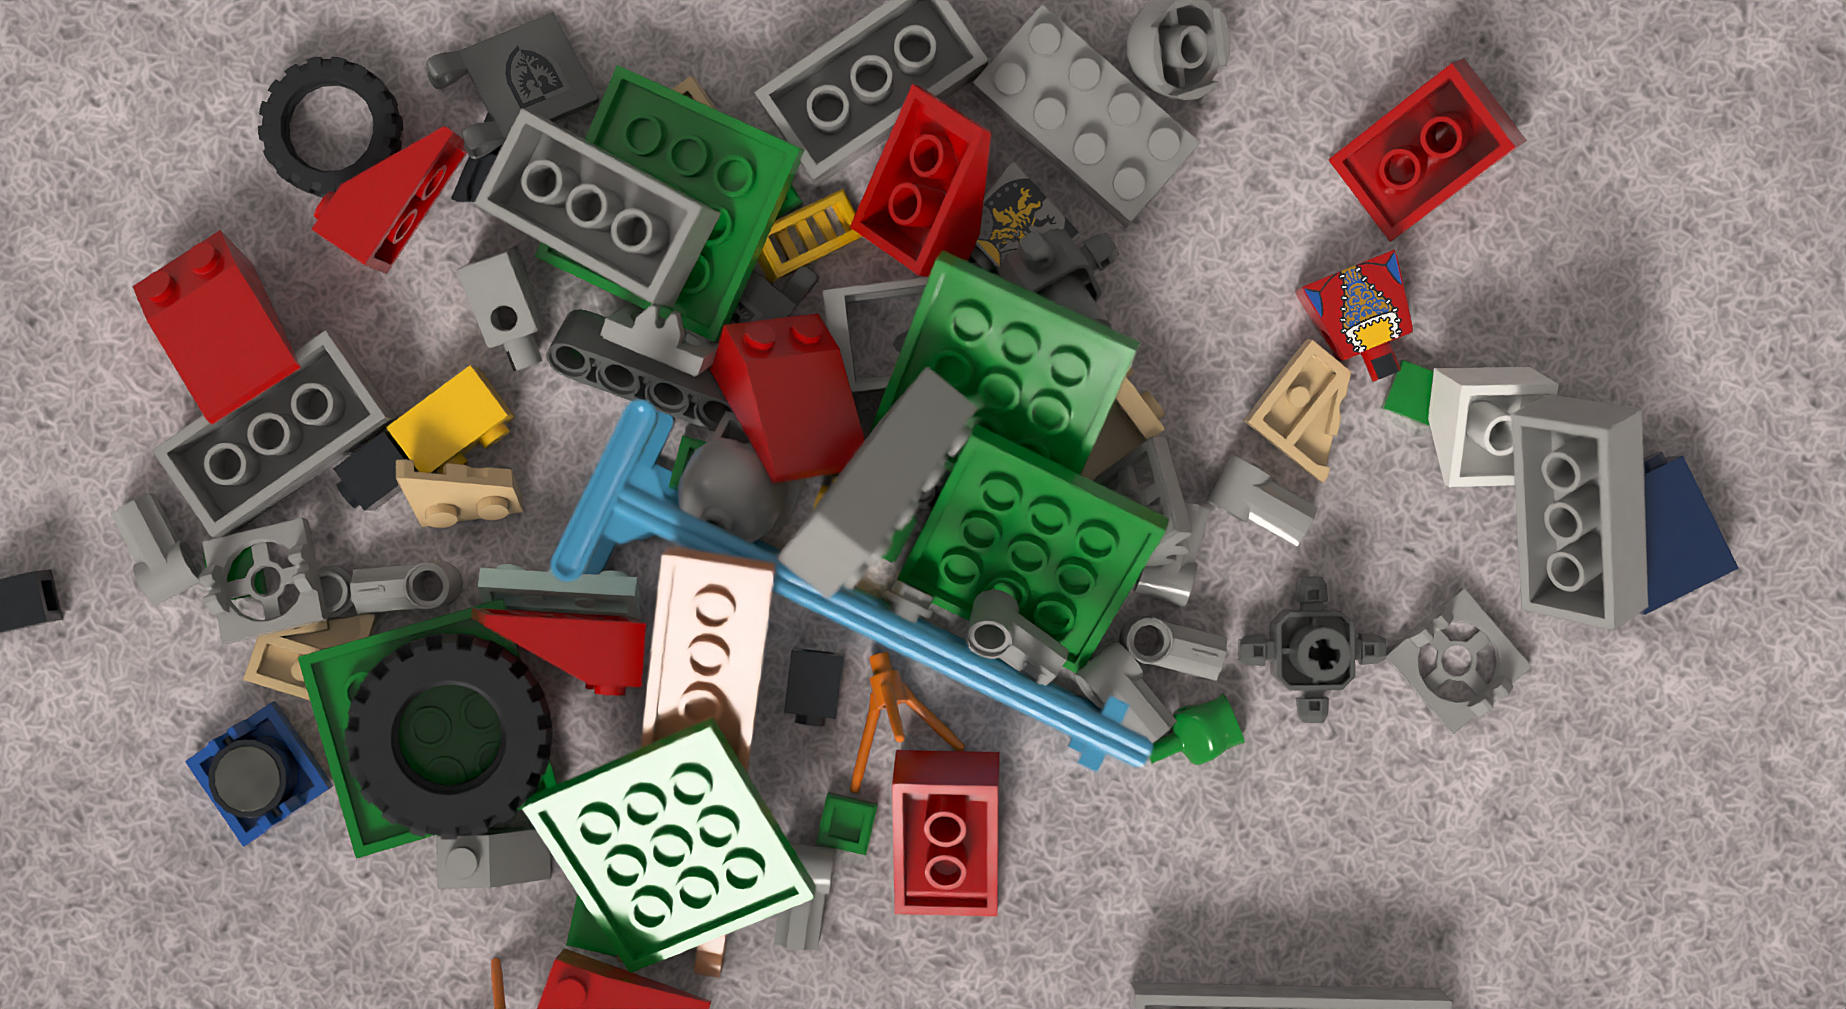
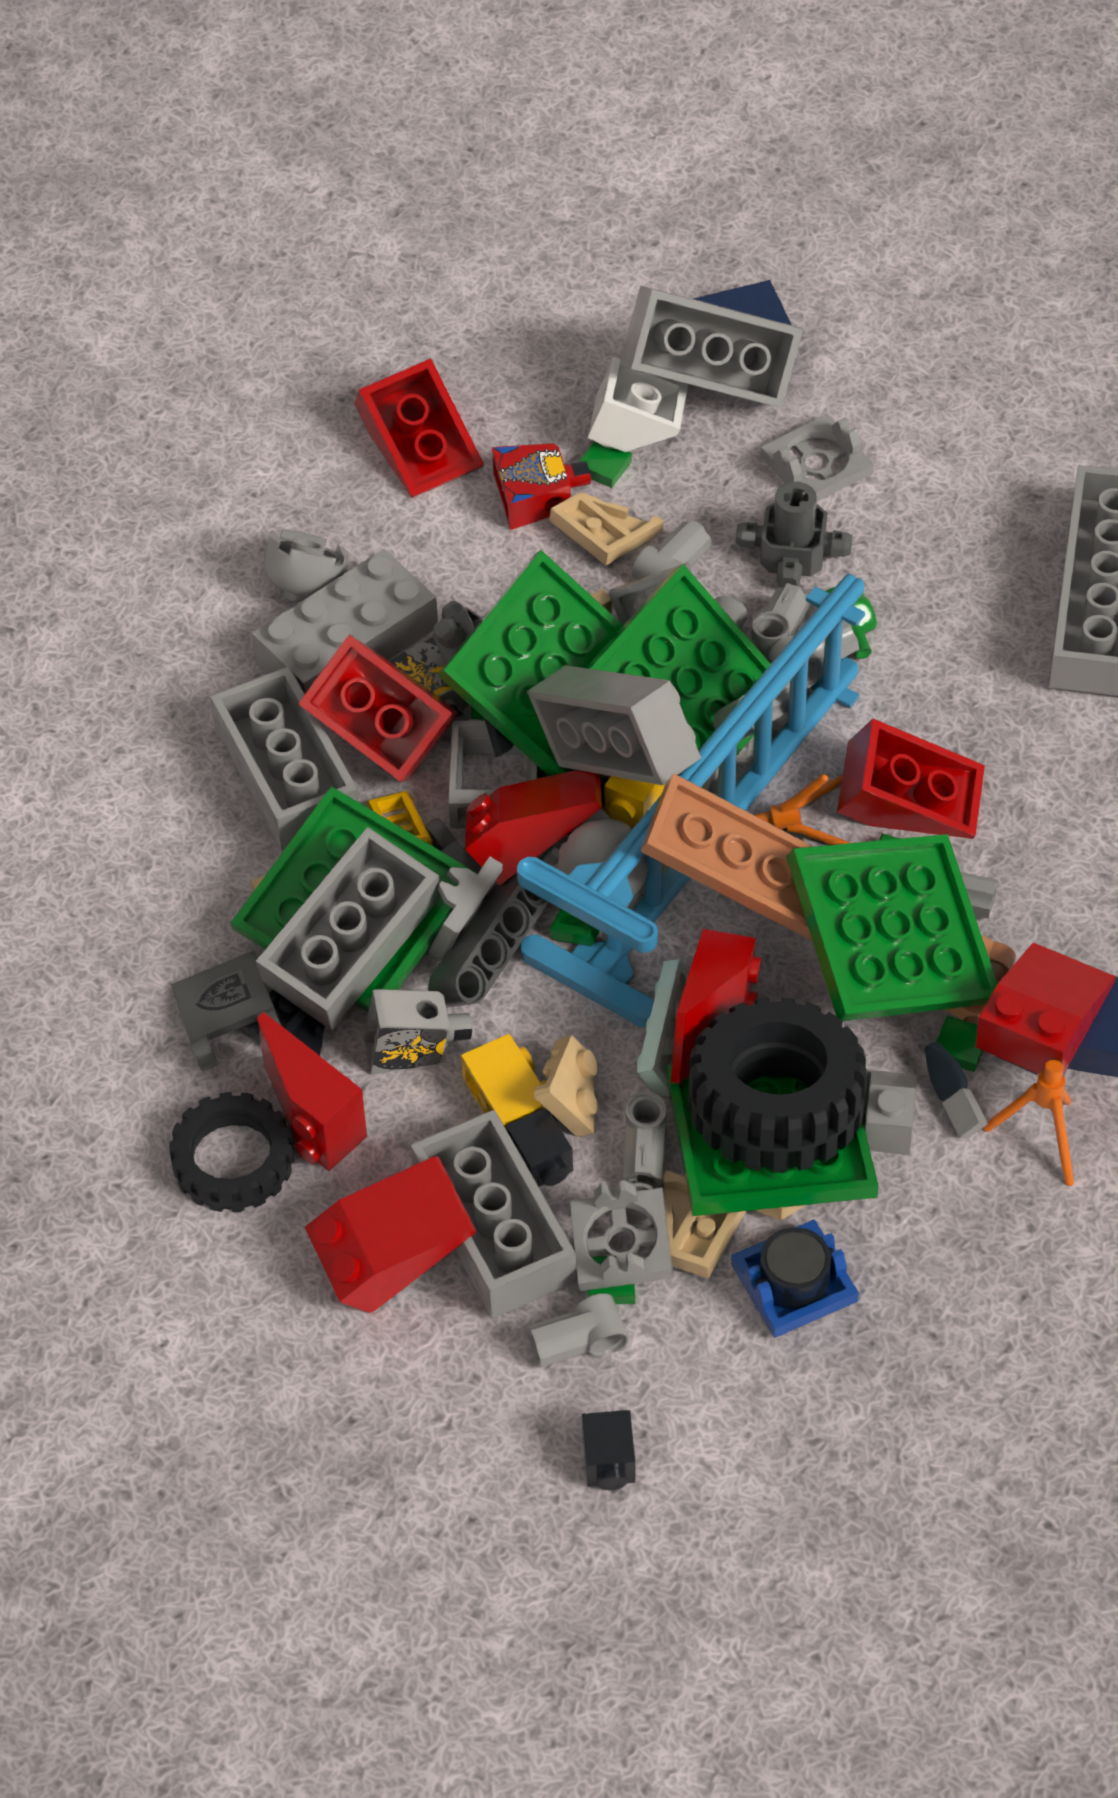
camera: 80 degrees left, 35 degrees down
(527, 923) = (953, 1090): none -> piece

